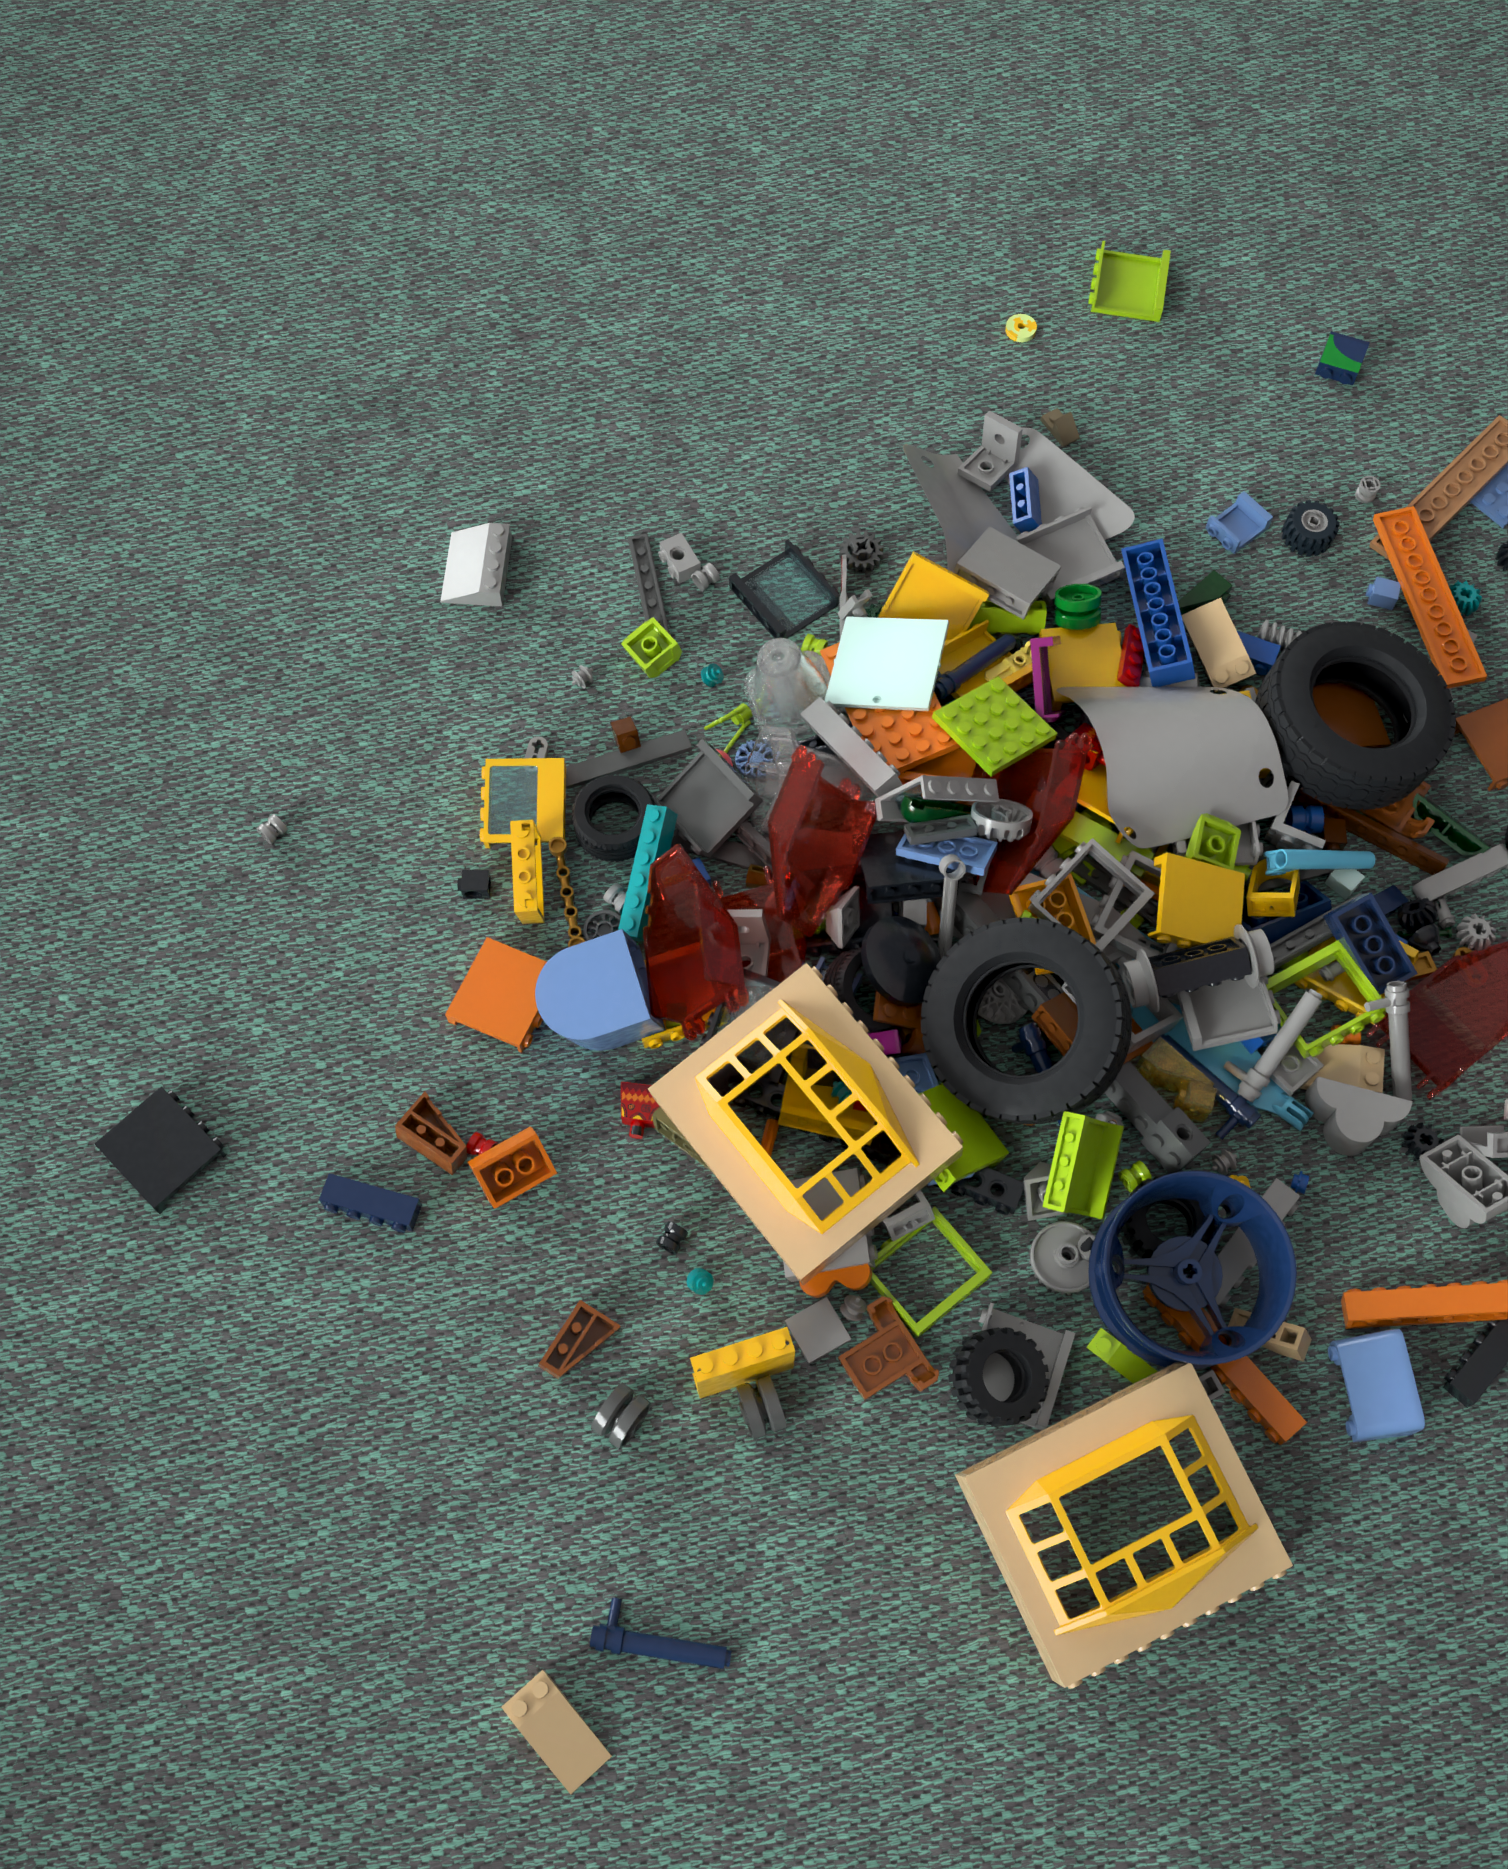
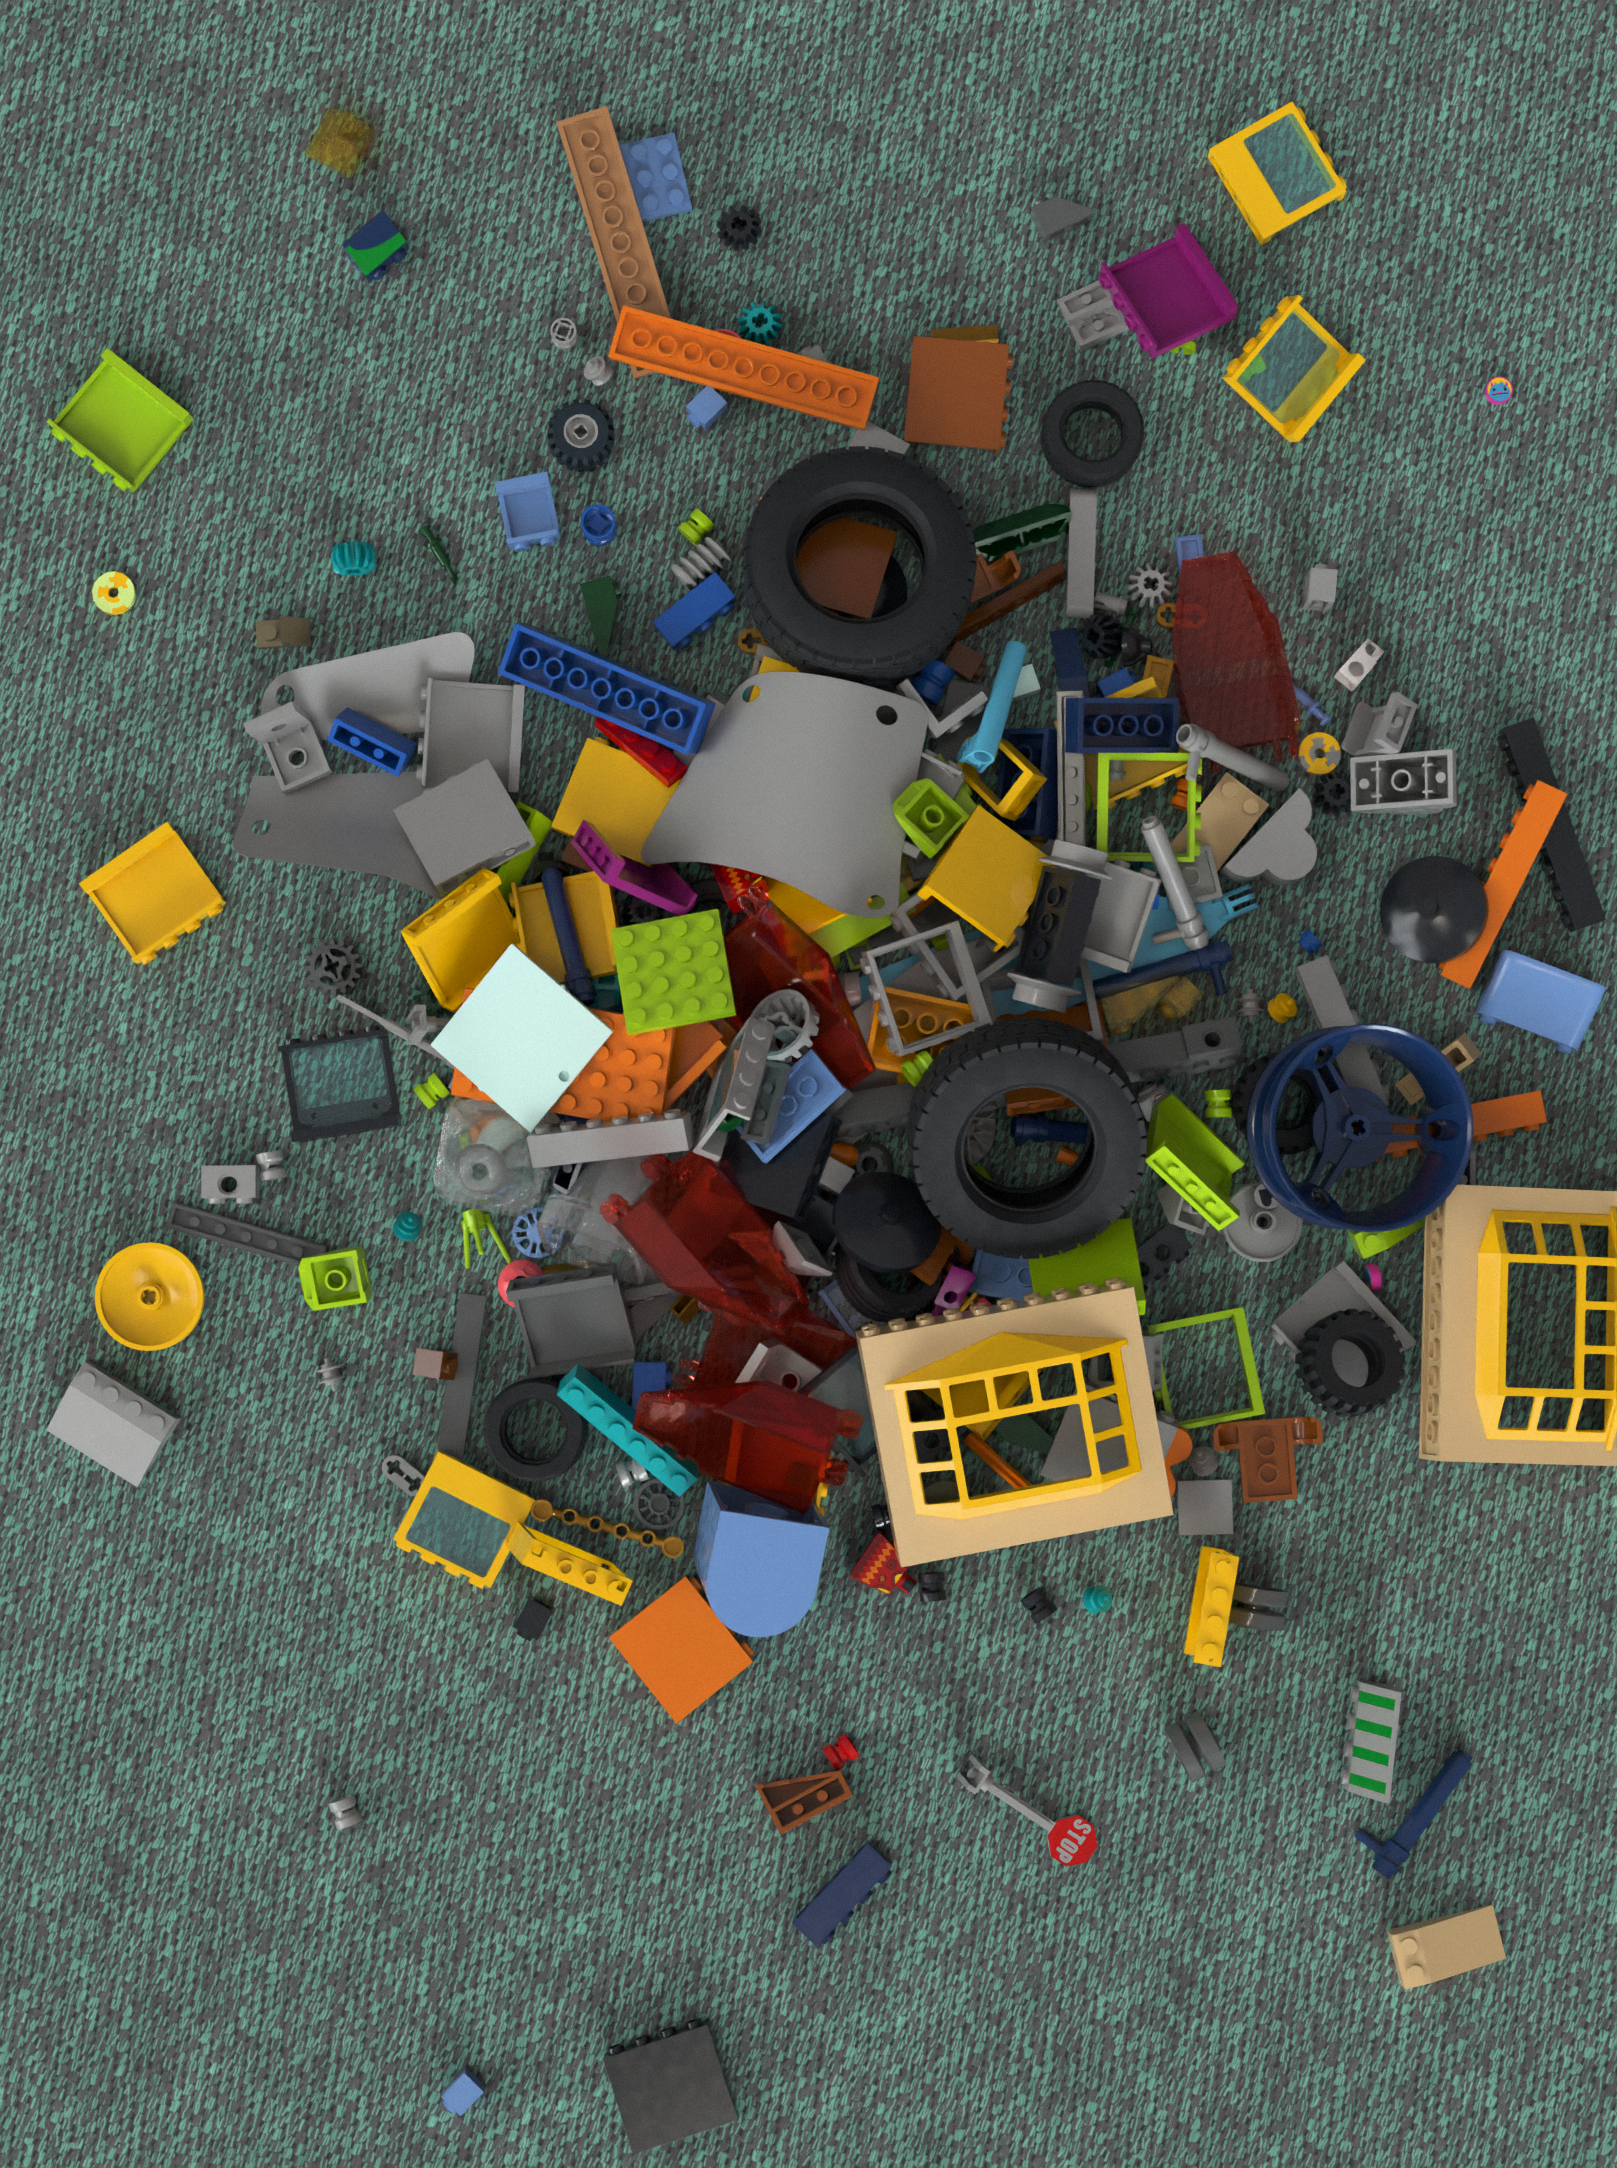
camera: 60 degrees left, 20 degrees up
(94, 1004) = (462, 2092): none -> medium blue brick
(497, 1358) = (1069, 1838): none -> light grey piece
(512, 1167) = (885, 1733): orange brick -> none
(575, 545) = (149, 1296): none -> yellow dish
(577, 1339) = (1094, 1751): dark orange wedge -> none
(644, 1150) = (932, 1586): none -> black wheel
(700, 1563) = (1371, 1740): none -> light grey slope
(800, 1152) = (1023, 1432): none -> dark green slope
(845, 430) = (153, 893): none -> yellow panel
(949, 901) = (854, 1141): light grey piece -> none
(1010, 664) = (584, 893): light yellow piece -> none
(1076, 1367) = (1372, 1276): none -> dark pink tile
(1078, 606) = (548, 770): green wheel -> none
(1136, 438) = (353, 558): none -> teal gear
(1176, 483) = (438, 551): none -> dark green piece
(1218, 645) = (682, 645): tan slope -> none
(1260, 565) = (598, 525): none -> blue wheel
(1300, 623) = (696, 527): none -> lime wheel
(1359, 520) = (598, 370): none -> light grey wheel
(1389, 1261) = (1434, 909): none -> black dish
(1390, 318) = (340, 141): none -> clear yellow slope
(1447, 1109) = (1328, 745): none -> yellow piece
(1473, 1092) = (1311, 706): none -> medium blue piece

